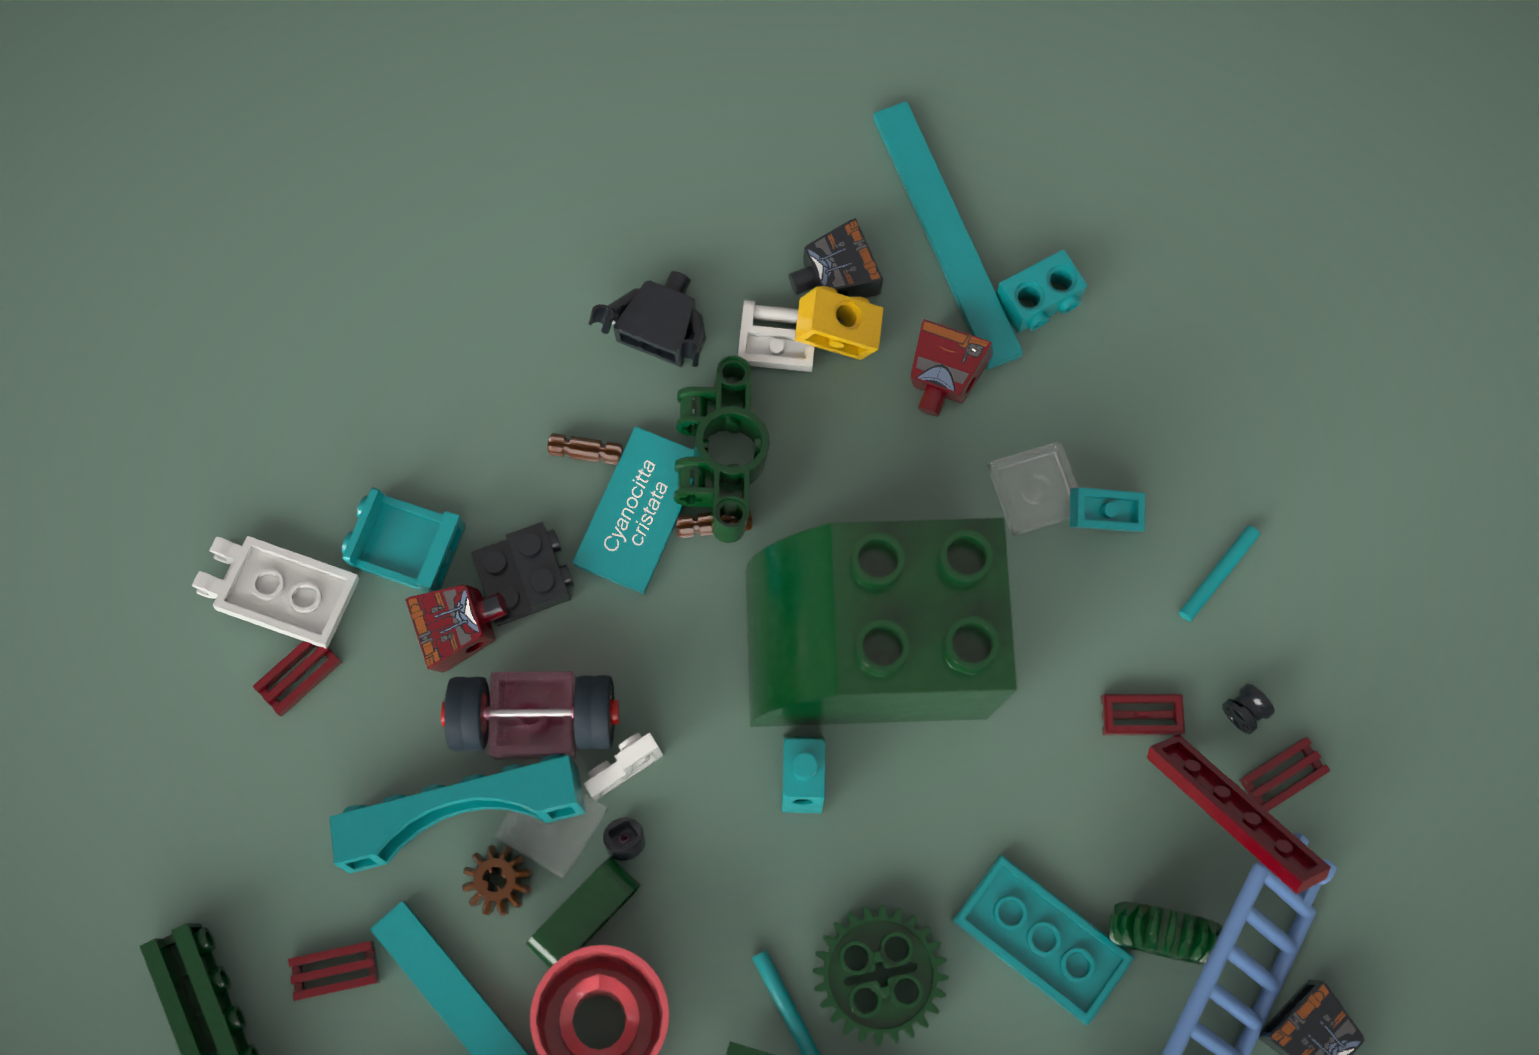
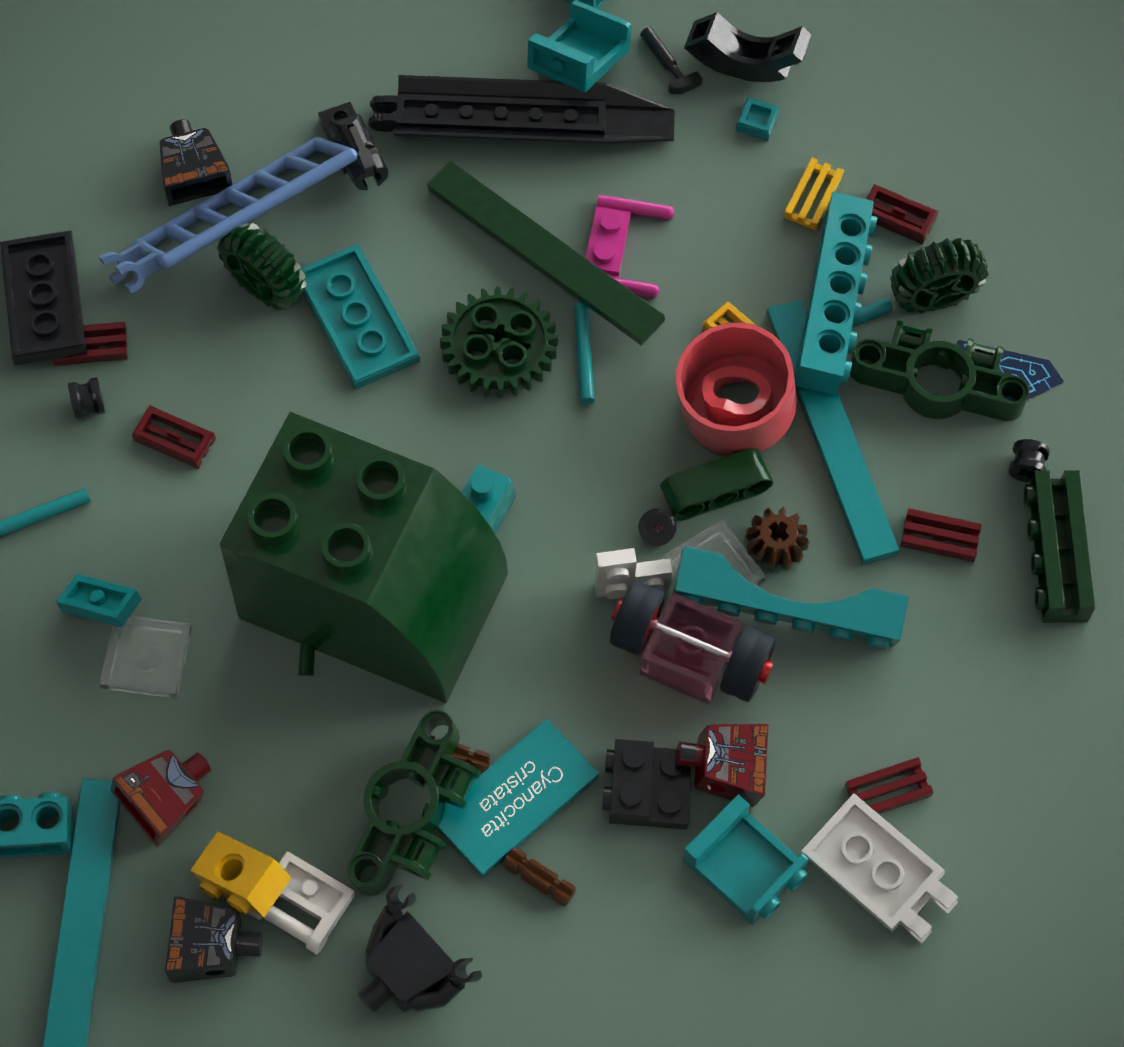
camera: 155 degrees left, 10 degrees down
(1239, 814) = (155, 313): dark red plate -> none
(1362, 802) = (43, 298): none -> black tile

